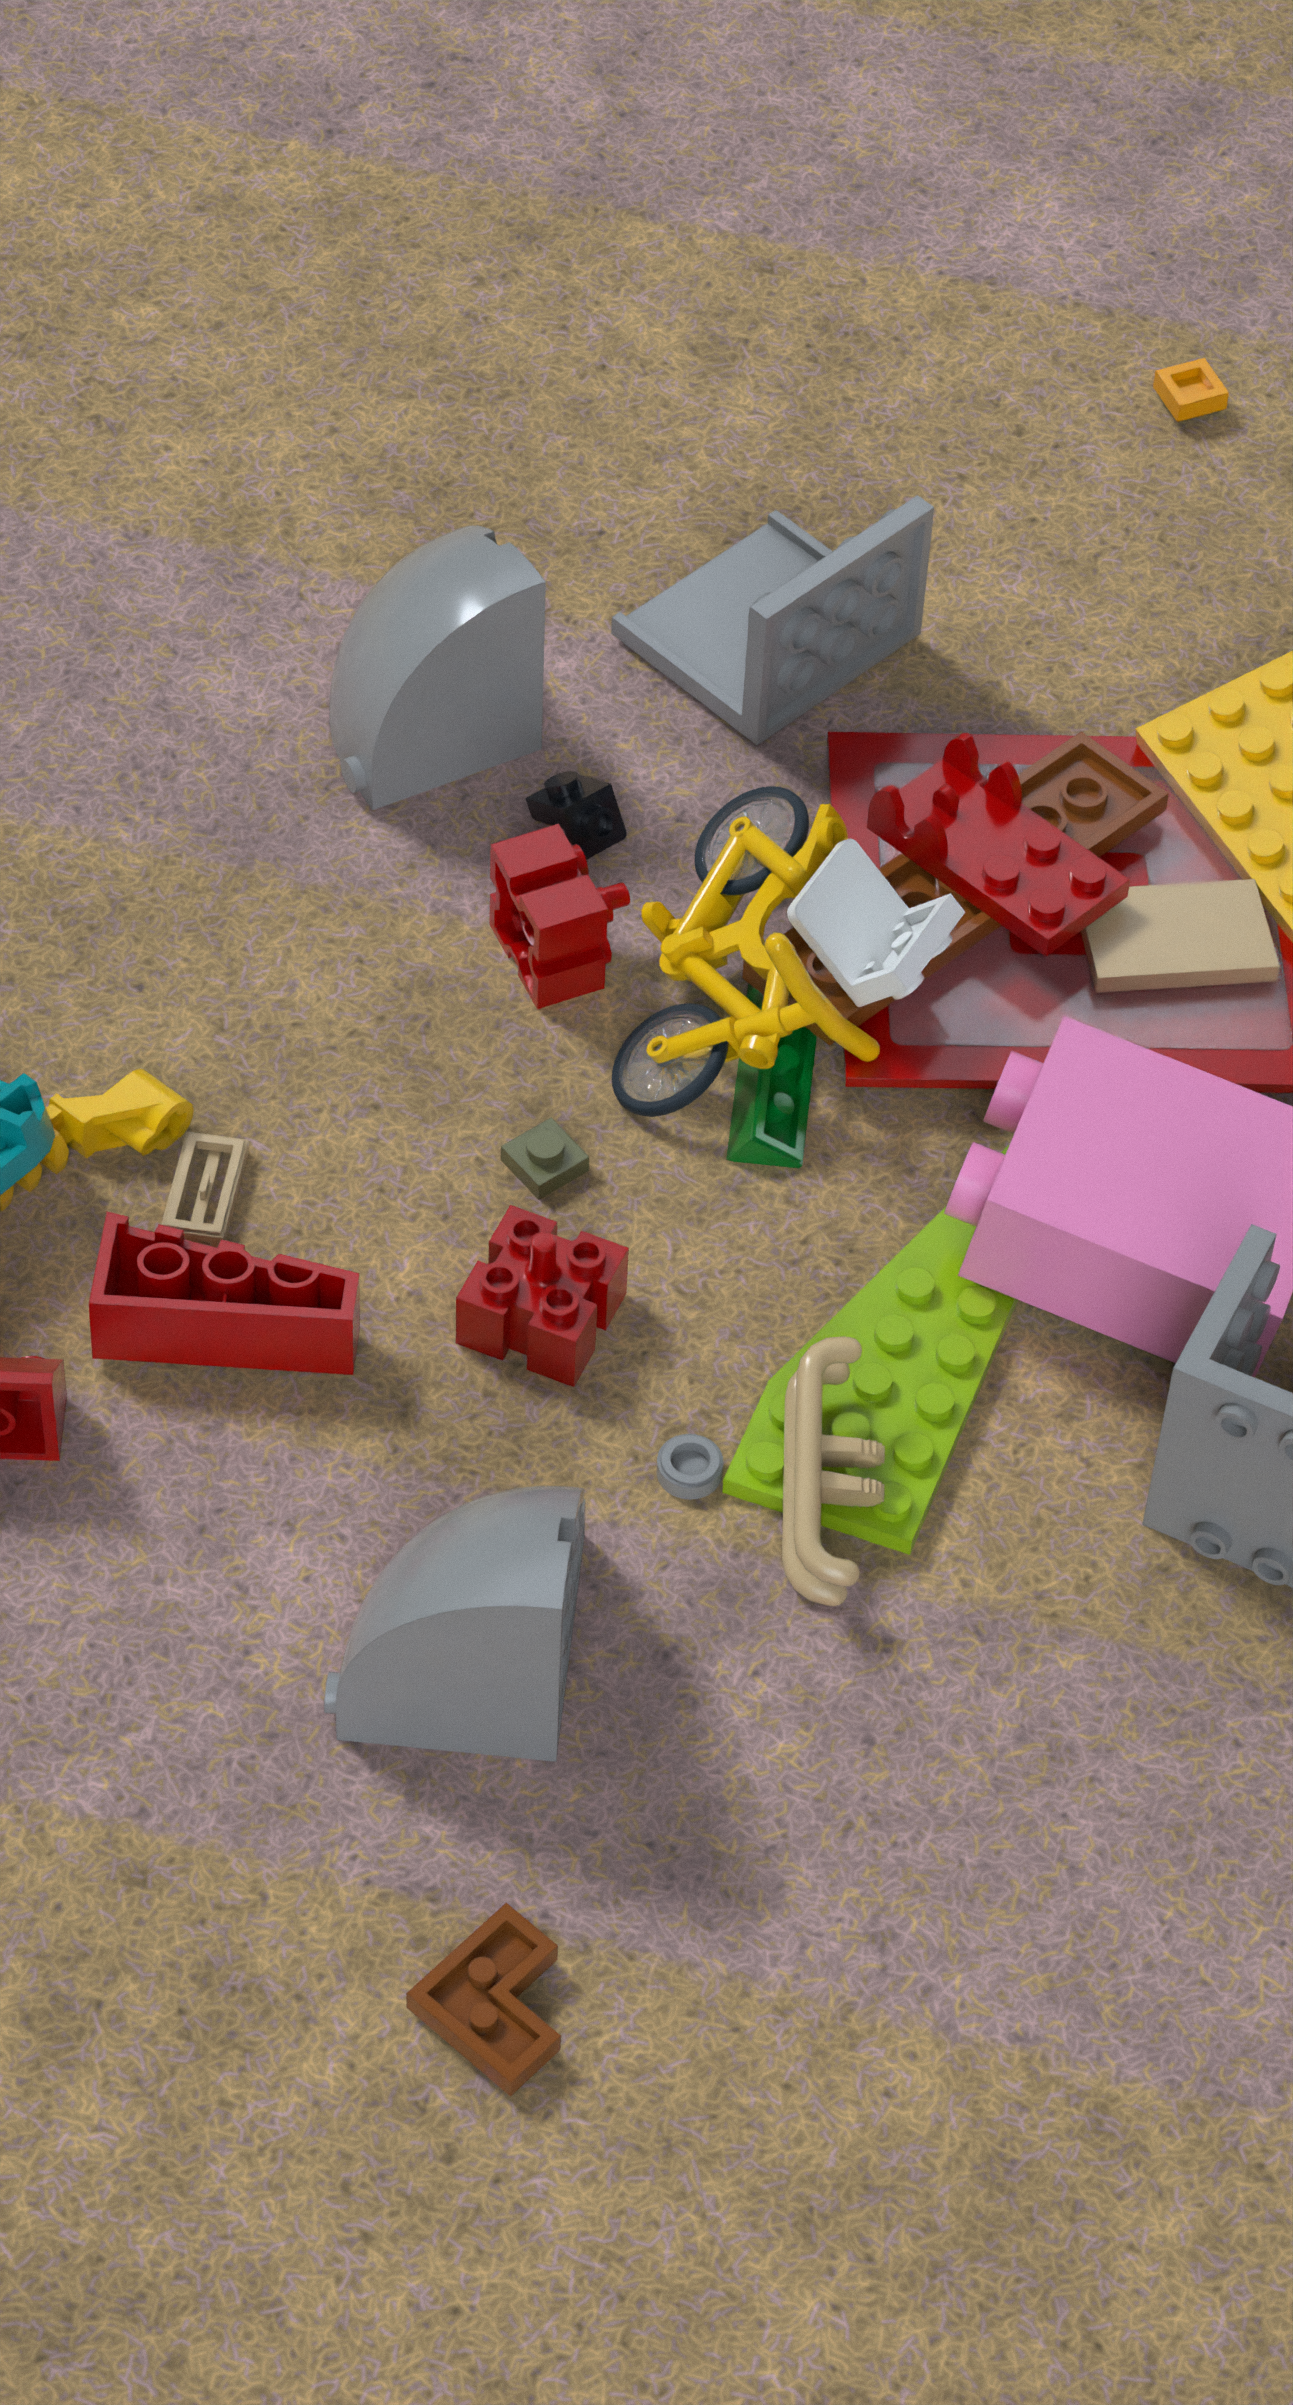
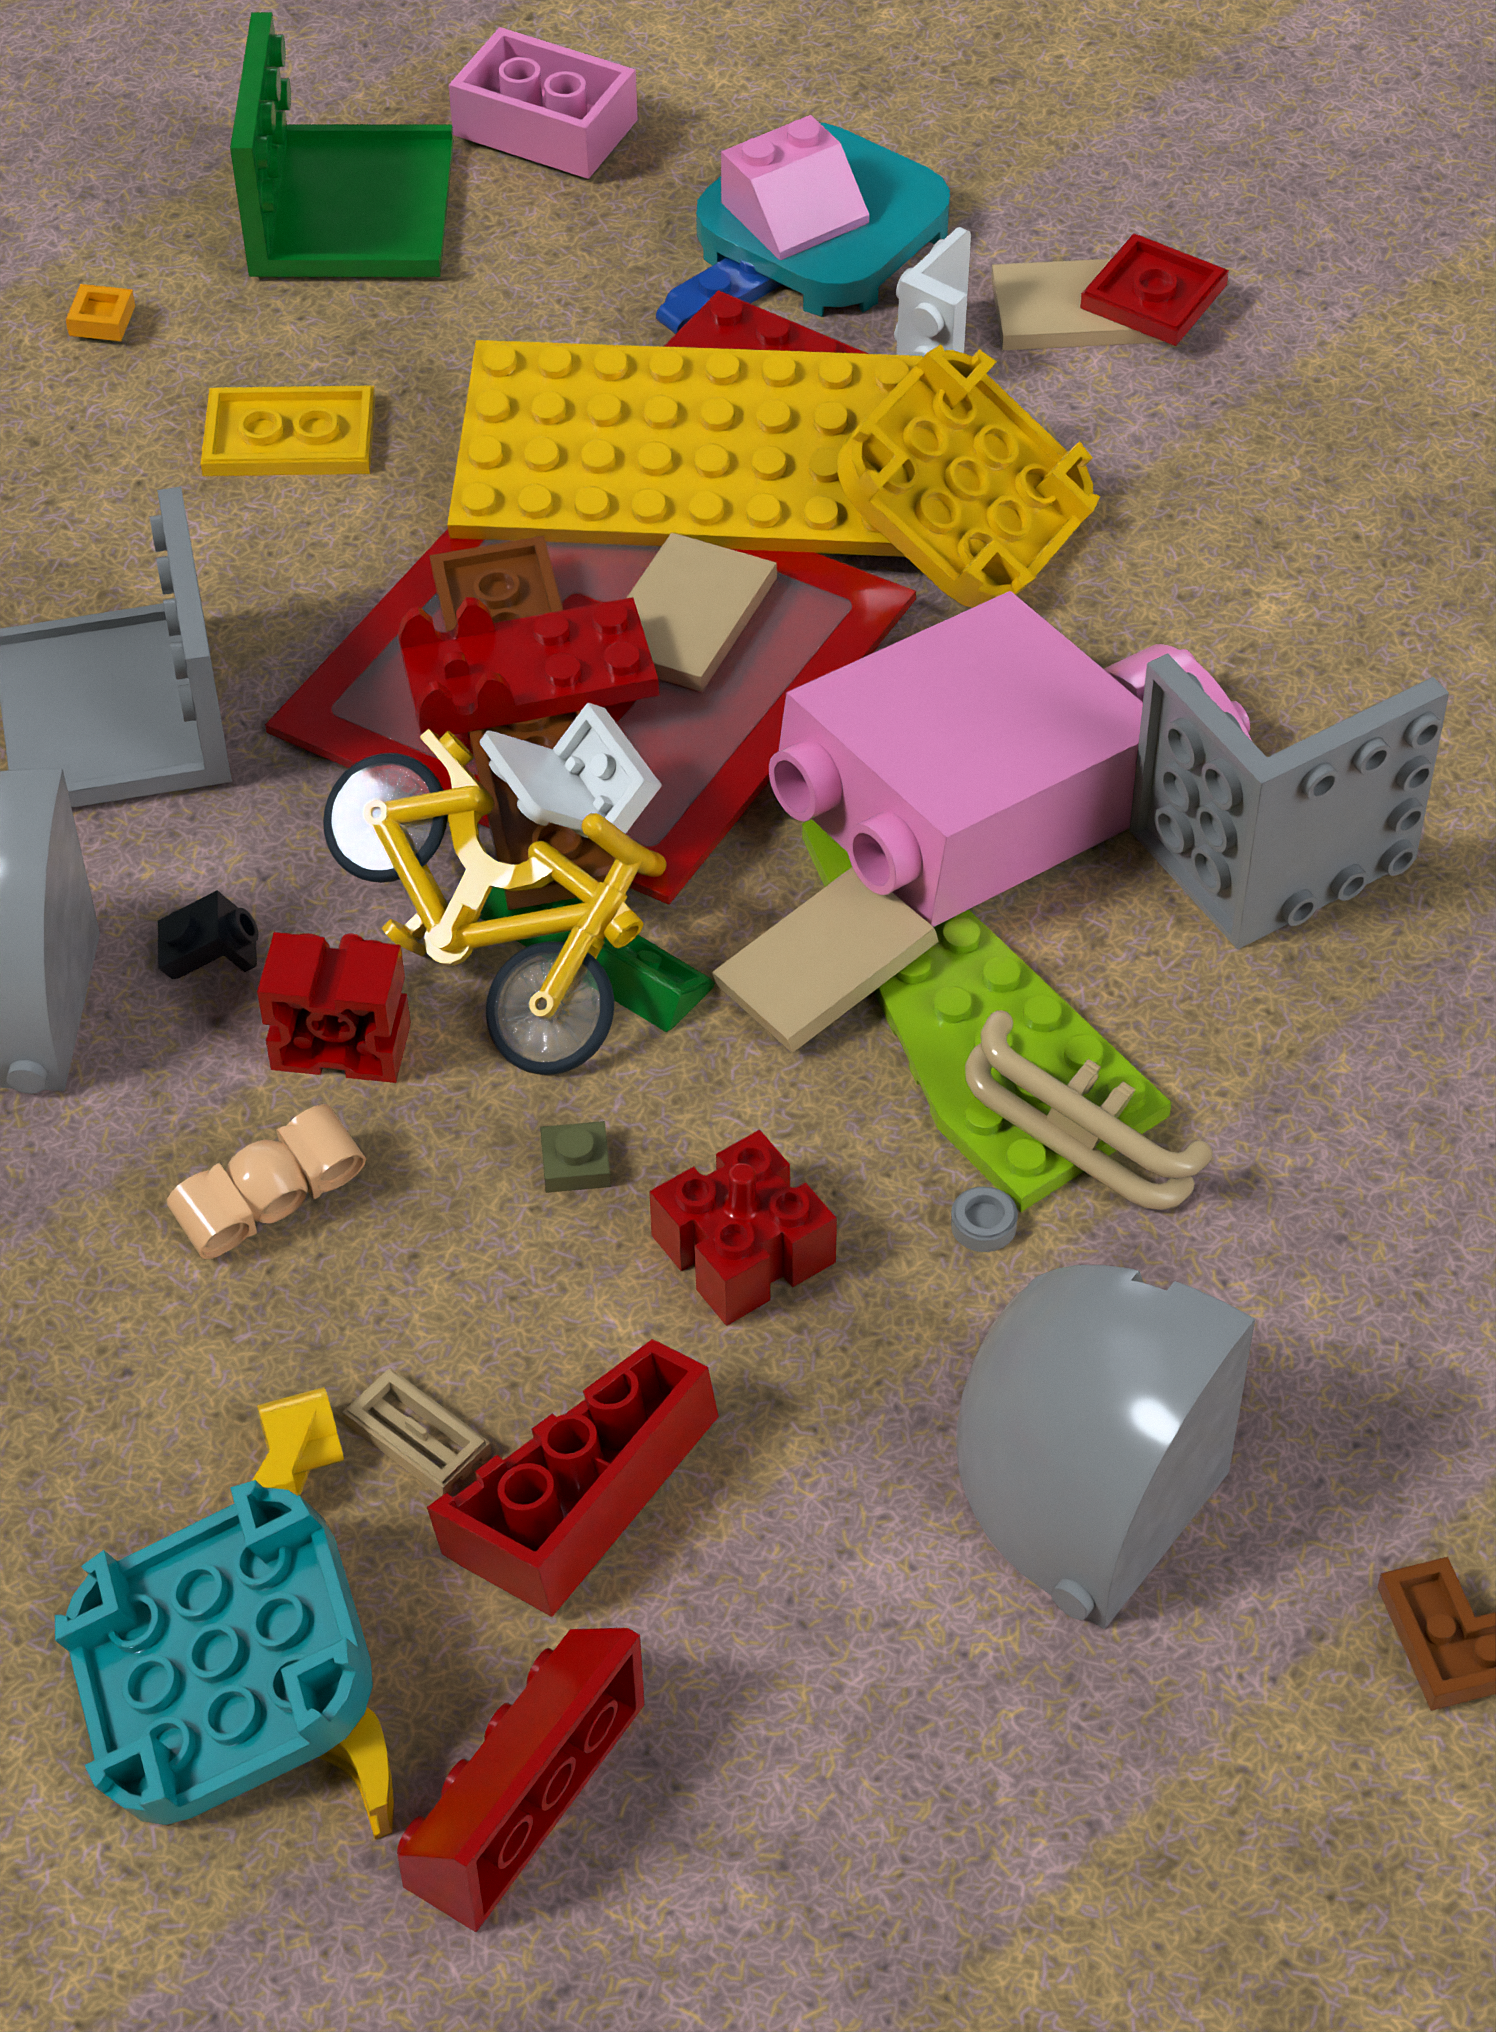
camera: 55 degrees left, 0 degrees up
(360, 968) = (265, 1181): none -> light nougat piece
(866, 1220) = (824, 959): none -> tan tile
(1174, 581) = (288, 430): none -> yellow tile

